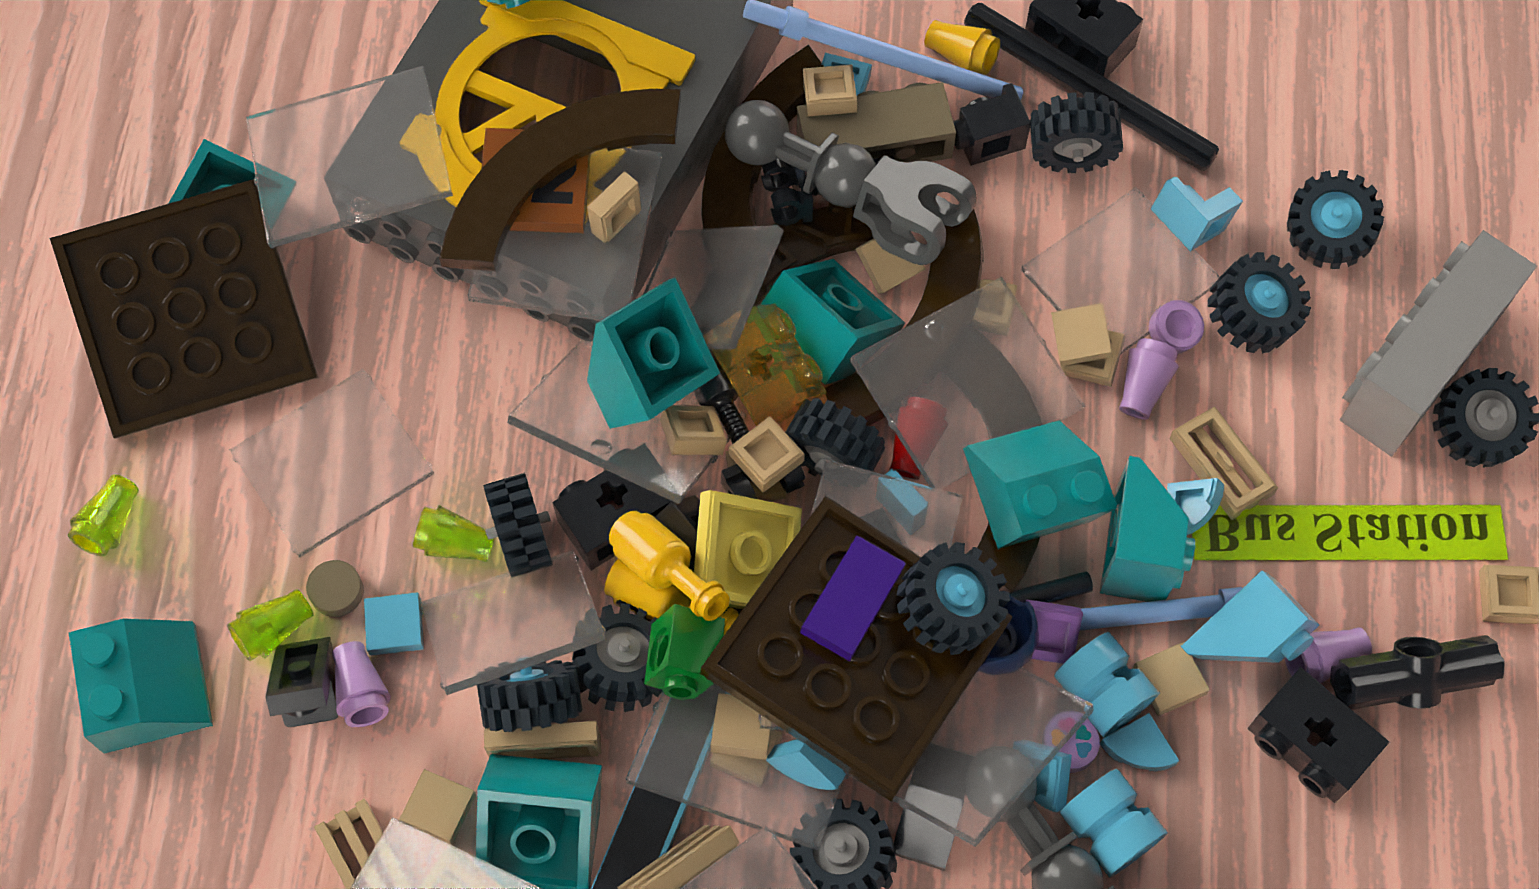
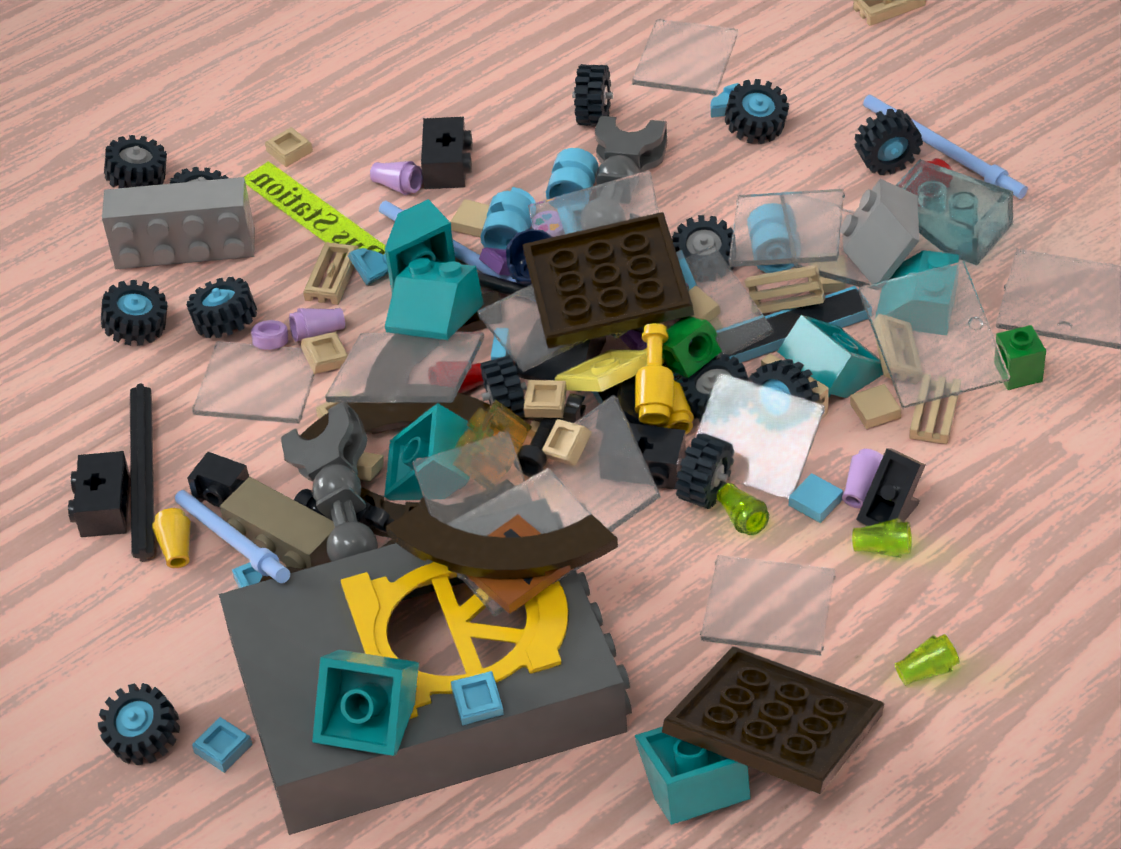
camera: 130 degrees left, 20 degrees down
(139, 681) = (984, 560): teal slope -> none
(334, 588) = (830, 536): dark tan tile -> none
(347, 157) = (597, 680): clear piece -> none
(433, 45) = (477, 698): none -> medium azure tile
(614, 207) = (491, 504): tan tile -> none
(648, 357) = (570, 455): teal slope -> none
(830, 90) = (285, 541): tan tile -> none
(852, 598) = (588, 282): dark purple tile -> none
(953, 598) = (545, 245): black wheel -> none
(1076, 132) = (191, 431): black wheel -> none
(1081, 334) = (322, 350): tan tile -> none
(1190, 216) = (190, 366): medium azure panel -> none
(1255, 626) = (419, 179): medium azure slope -> none
(1417, 672) = (374, 138): black piece -> none

